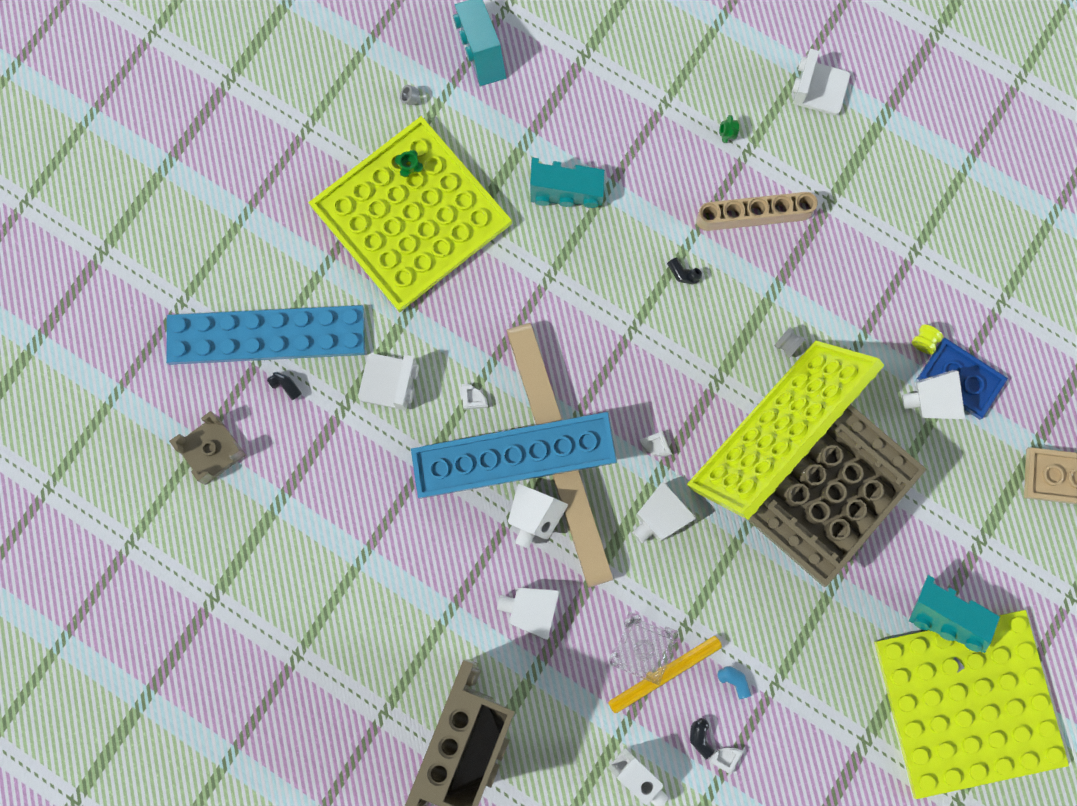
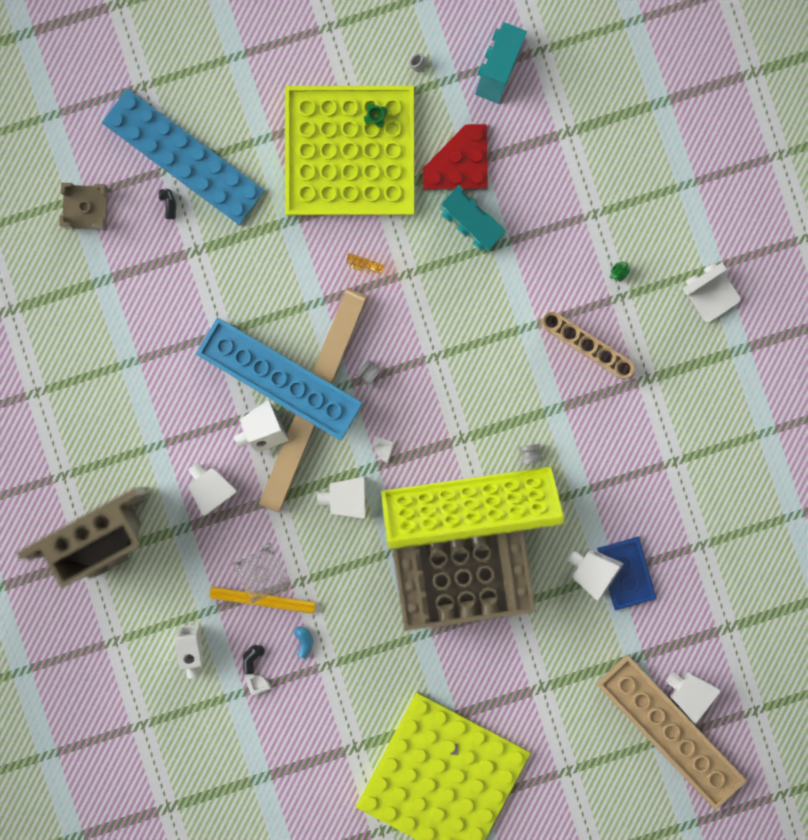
camera: 40 degrees right, 10 degrees up
(388, 381) = (239, 258): white bracket -> none
(473, 398) = (287, 315): white tile -> none
(498, 300) = (357, 263): none -> clear yellow plate
(511, 148) = (460, 161): none -> red plate
(587, 387) = (368, 372): none -> light grey wheel
(684, 275) = (500, 348): black arm -> none
(927, 339) = (625, 528): neon yellow wheel -> none
(953, 617) = (475, 718): teal wedge -> none

